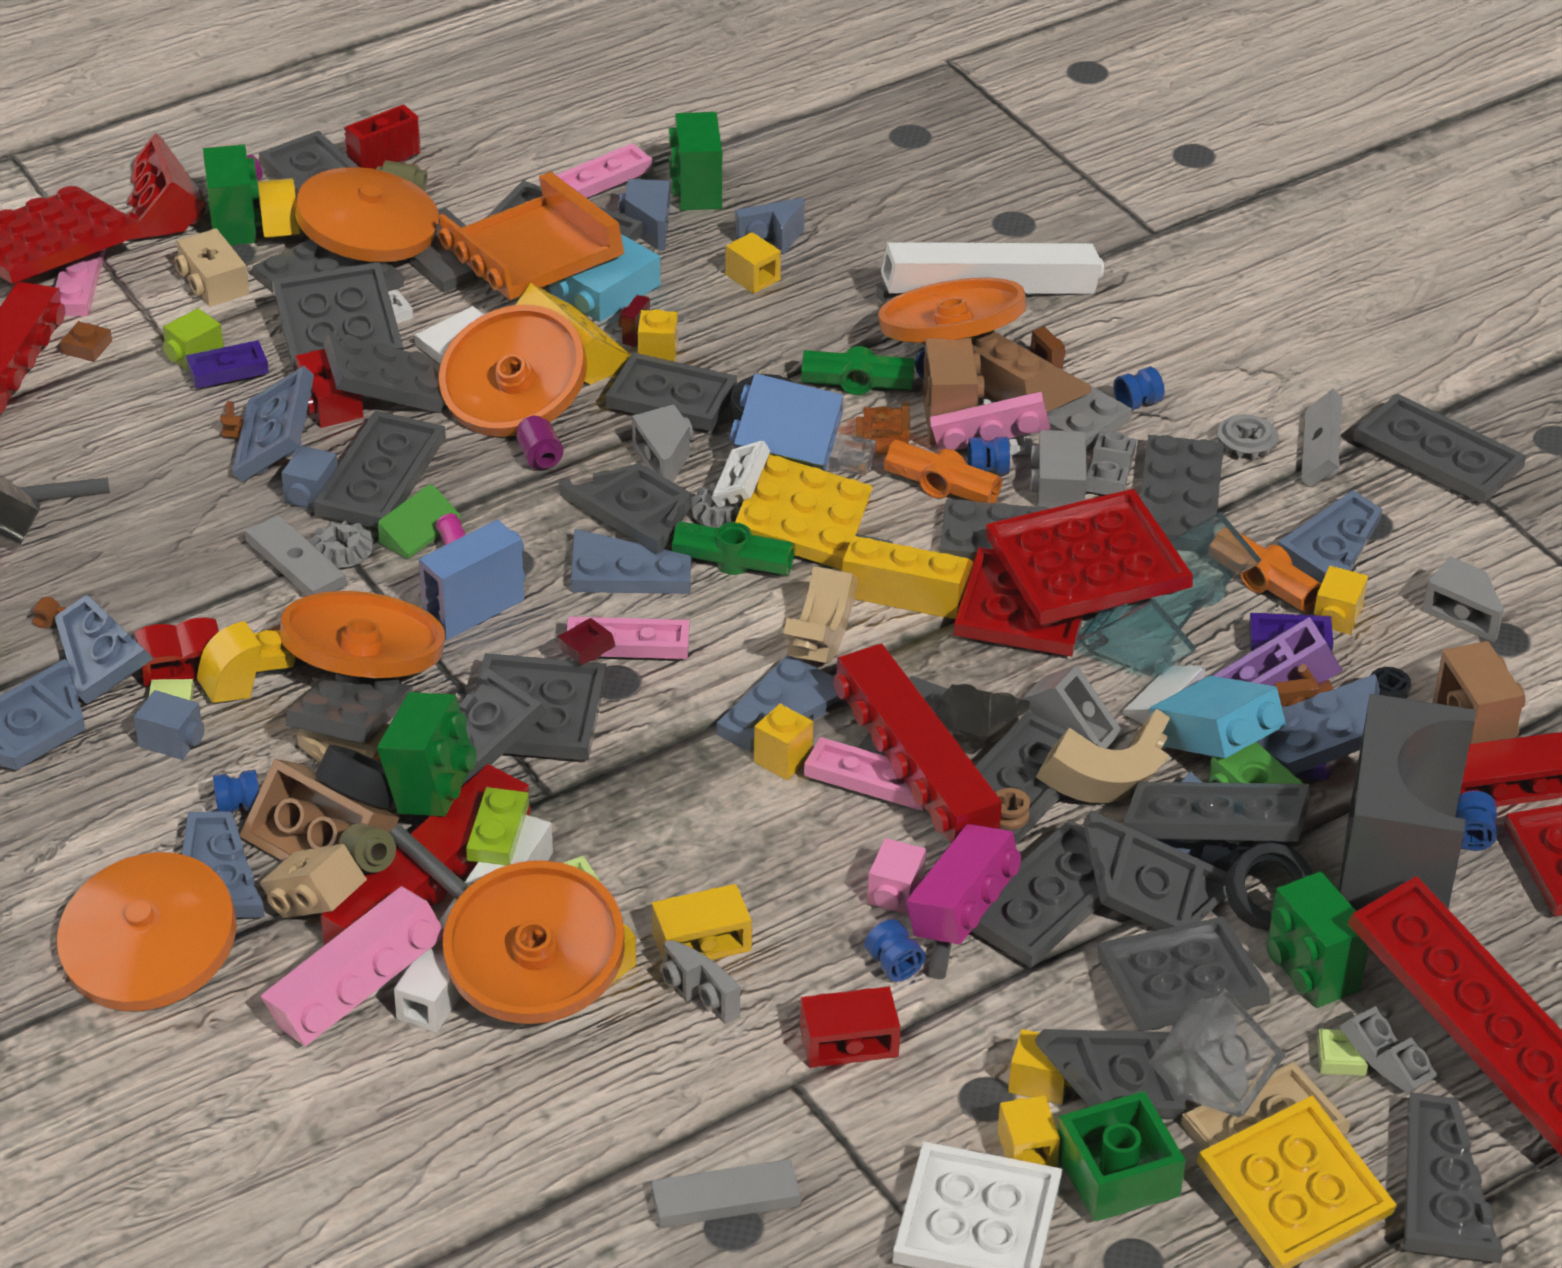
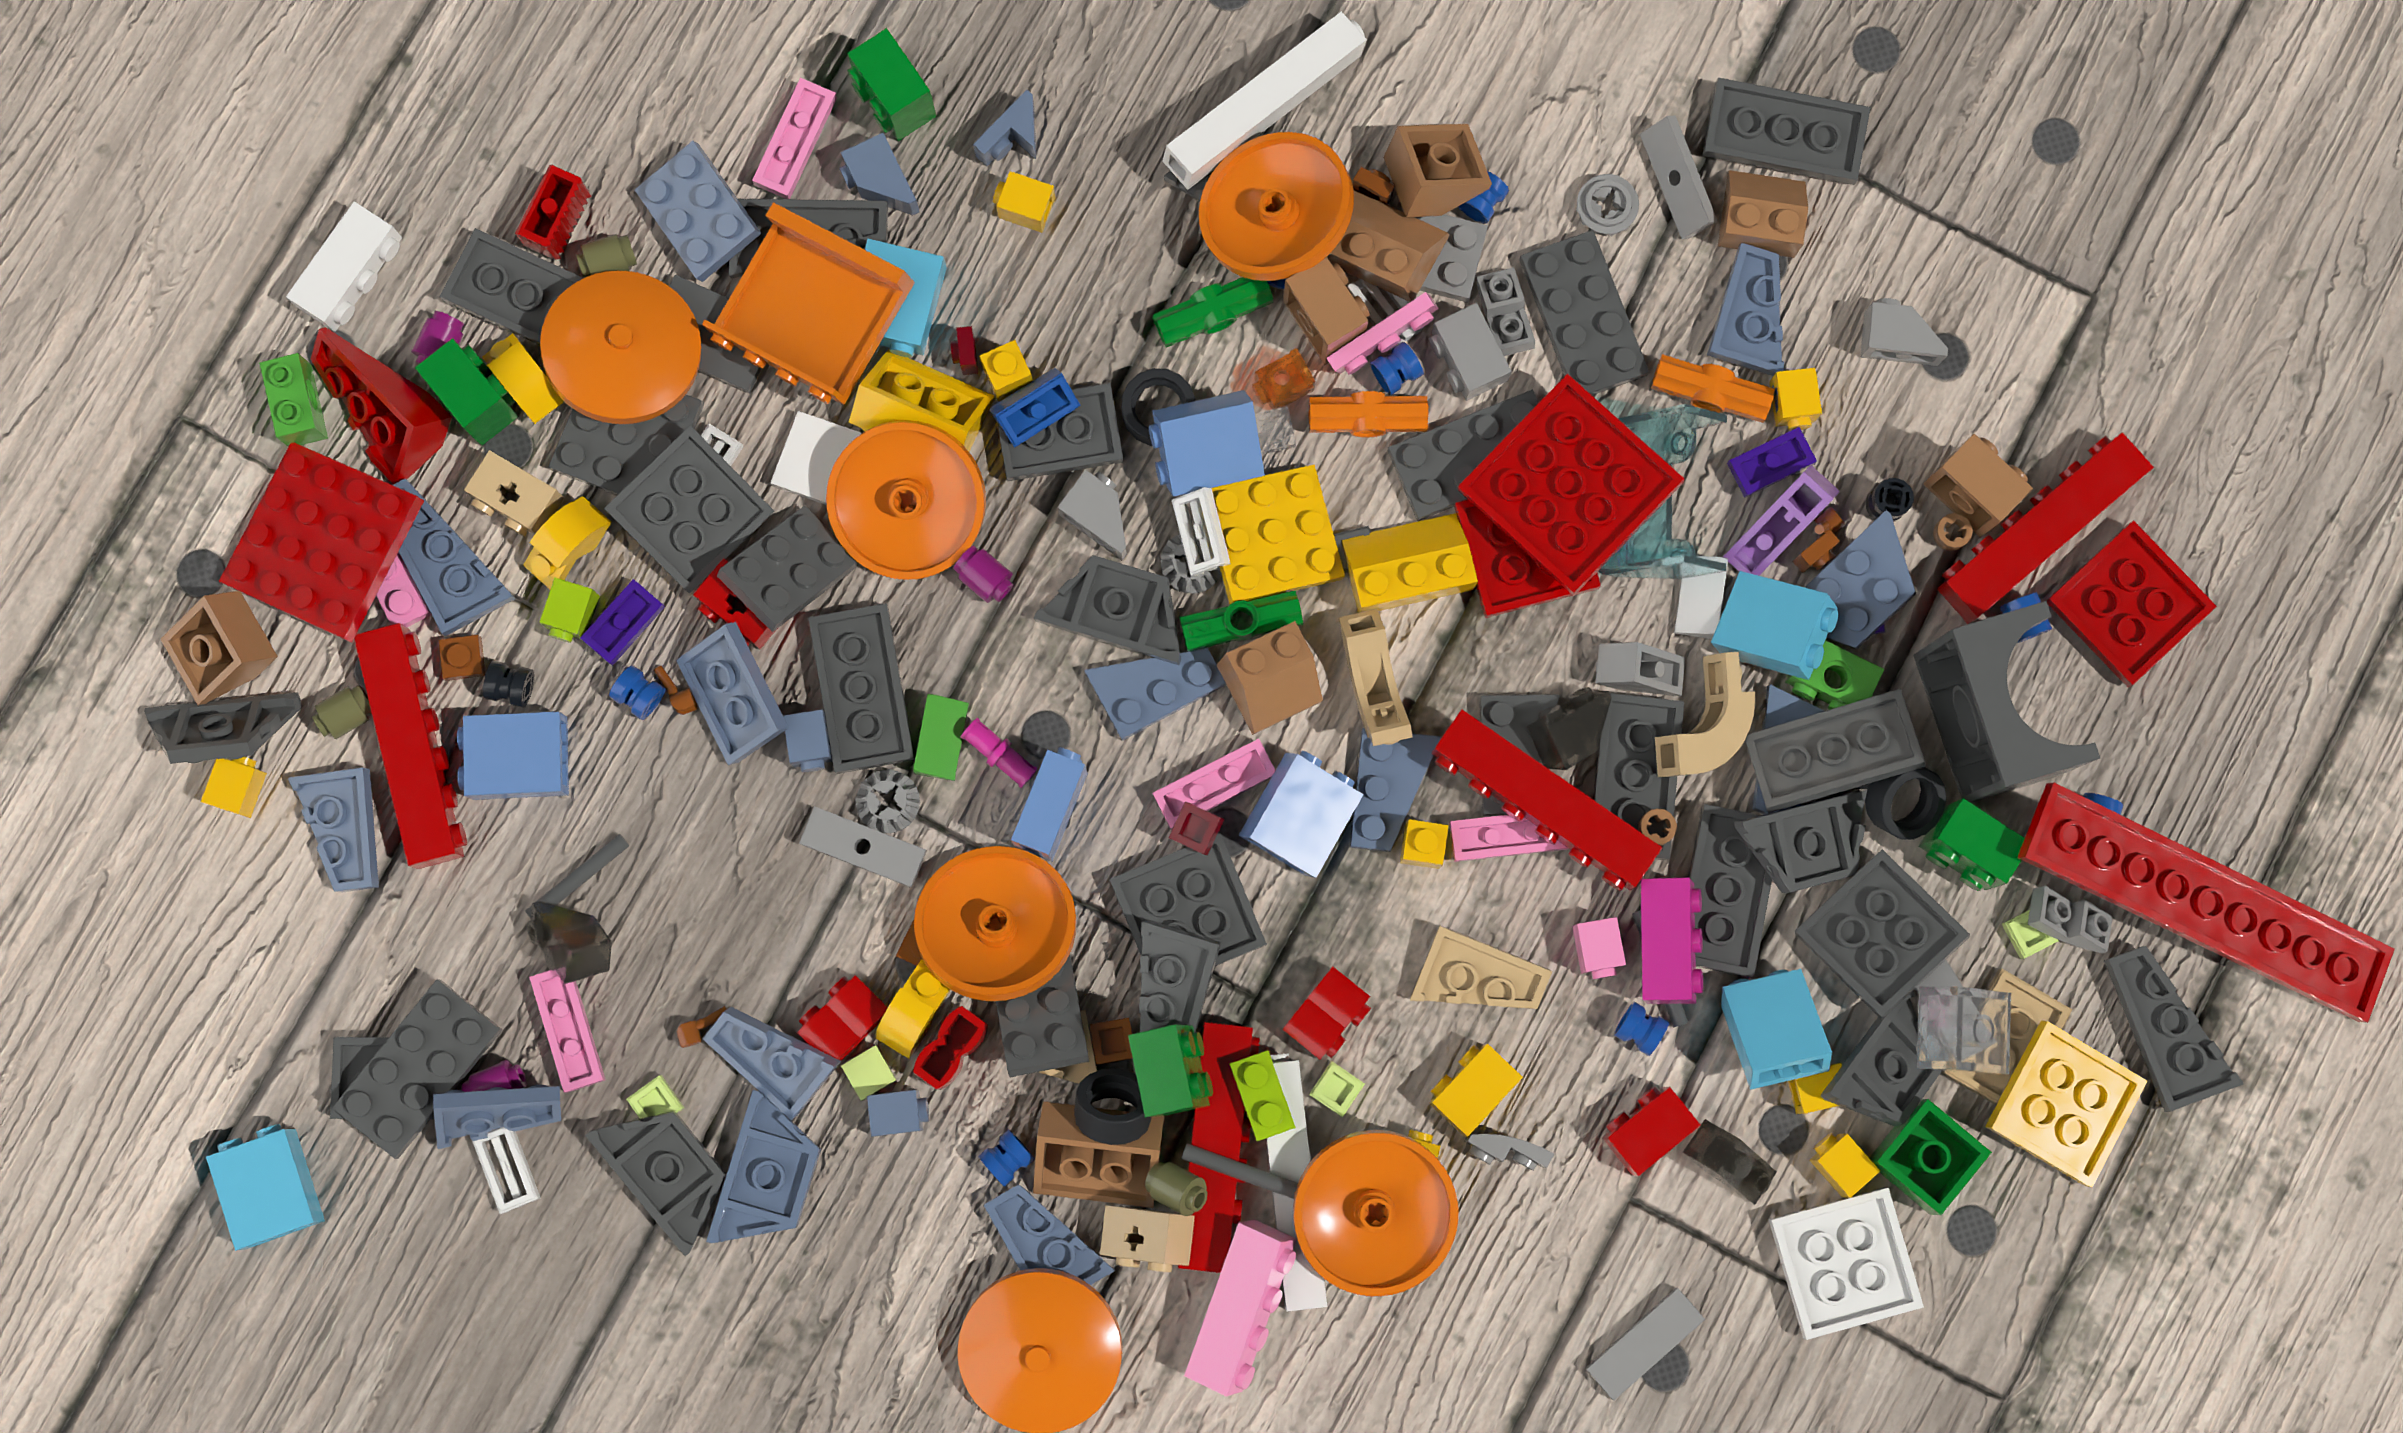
camera: 30 degrees left, 40 degrees up
(72, 400) = (514, 755): none -> medium blue brick
(101, 161) = (293, 400): none -> bright green brick
(106, 361) = (508, 683): none -> black wheel
(121, 288) = (447, 571): none -> sand blue wing
(200, 402) = (637, 692): none -> blue wheel
(206, 117) = (345, 267): none -> white brick
(230, 293) = (564, 539): none -> yellow brick
(252, 695) = (957, 1038): none -> red brick
(491, 178) = (697, 211): none -> sand blue plate
(604, 817) = (1327, 1014): none -> red brick
(663, 360) = (1035, 407): none -> blue slope
(686, 674) = (1301, 813): none -> brick
(732, 584) = (1272, 677): none -> medium nougat slope
(766, 851) = (1478, 973): none -> tan wing
(914, 1083) = (1730, 1161): none -> clear smoke slope
(1024, 988) = (1775, 1028): none -> medium azure brick
(1106, 349) = (1435, 168): none -> medium nougat slope
(1385, 484) = (1764, 213): none -> medium nougat slope

